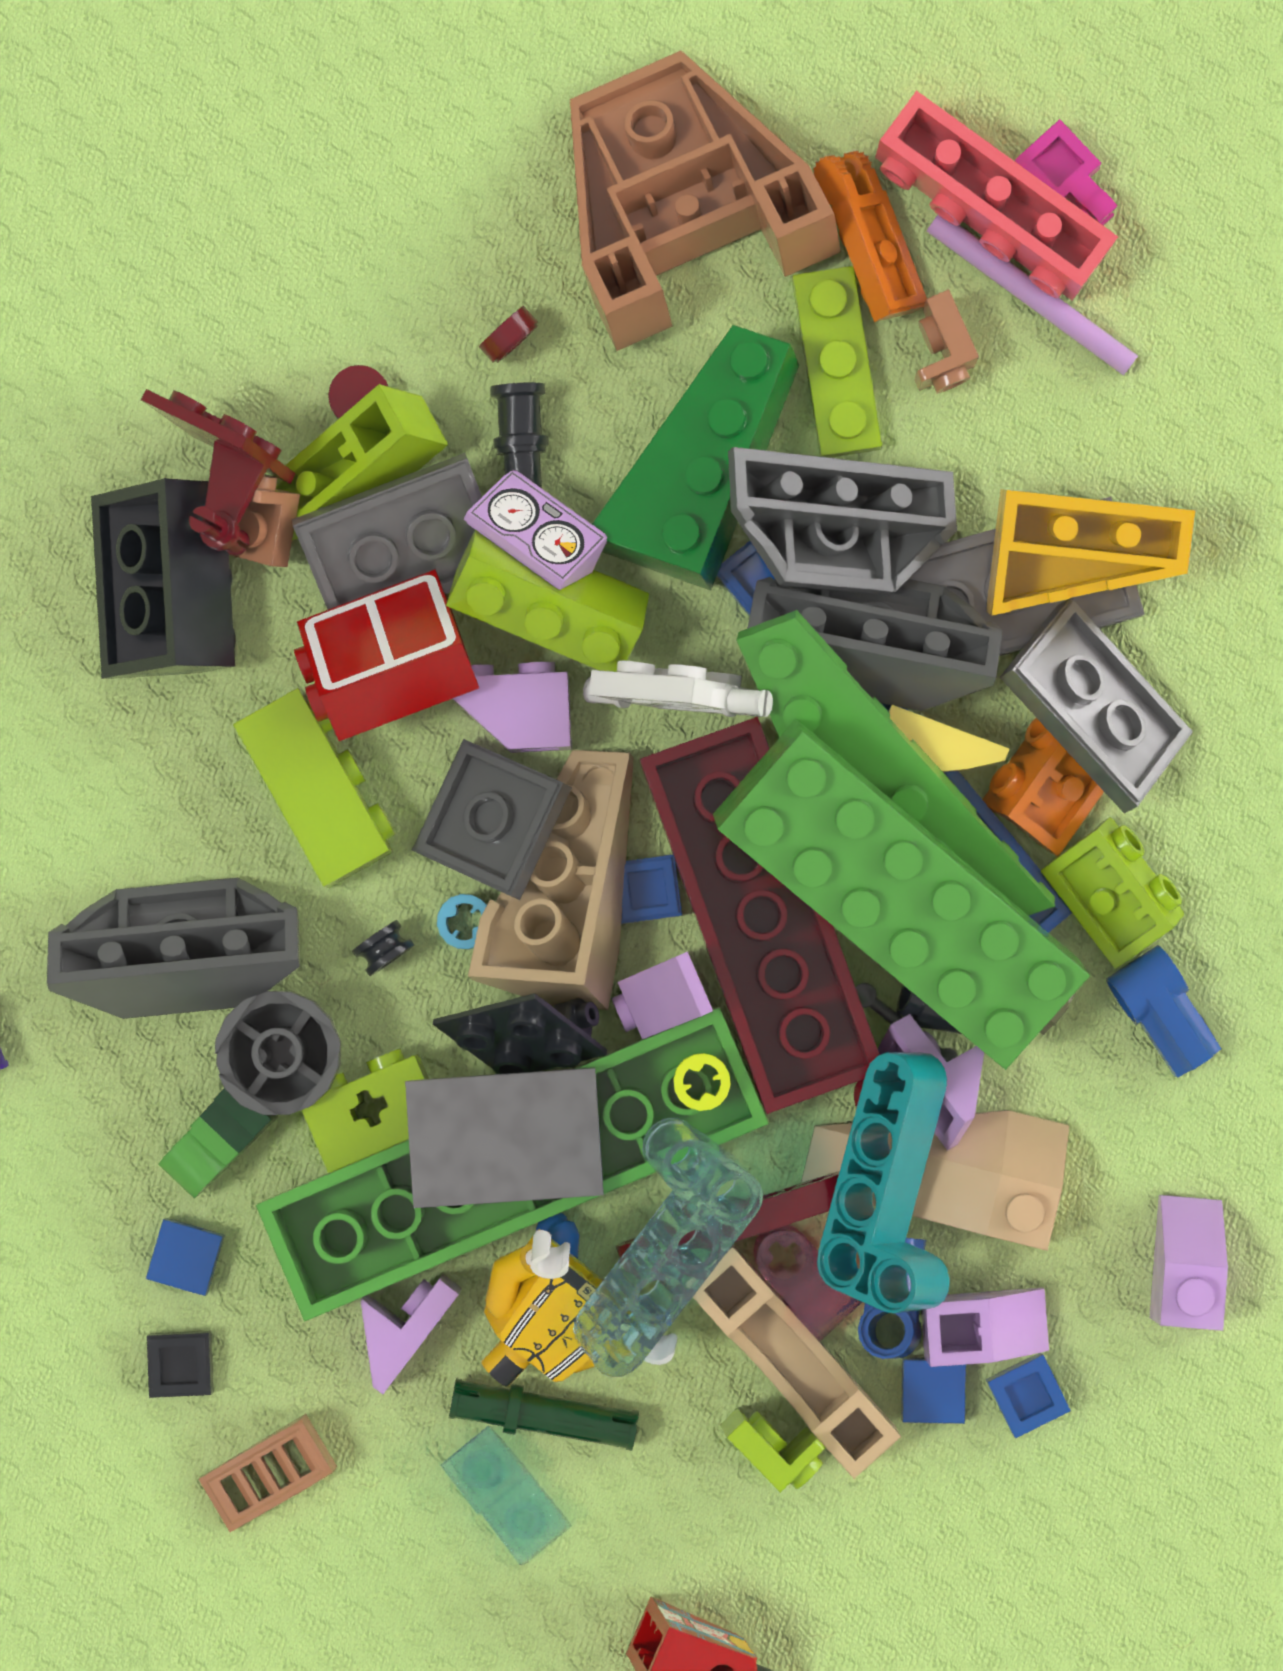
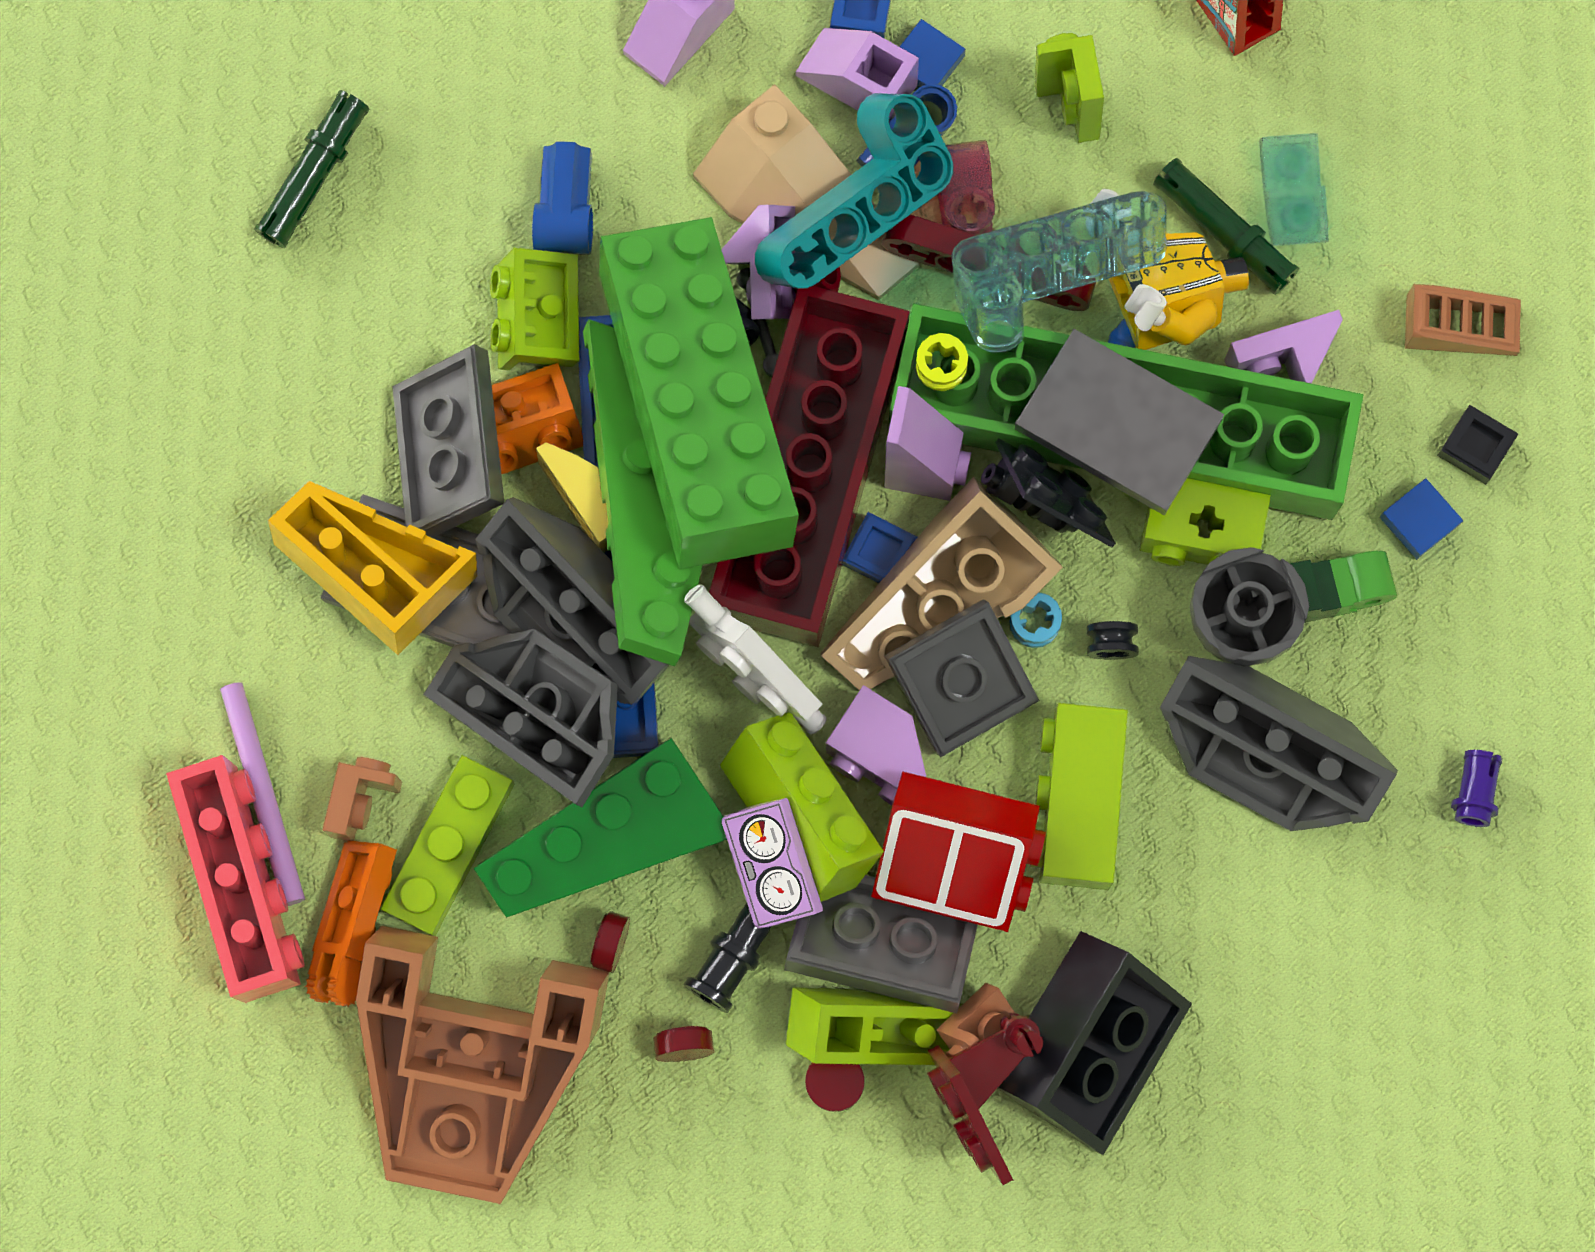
camera: 145 degrees left, 10 degrees down
(634, 376) = (610, 941): none -> dark red tile
(796, 1363) = (1011, 121): tan arch -> none
(1067, 168) = (166, 869): dark pink plate -> none

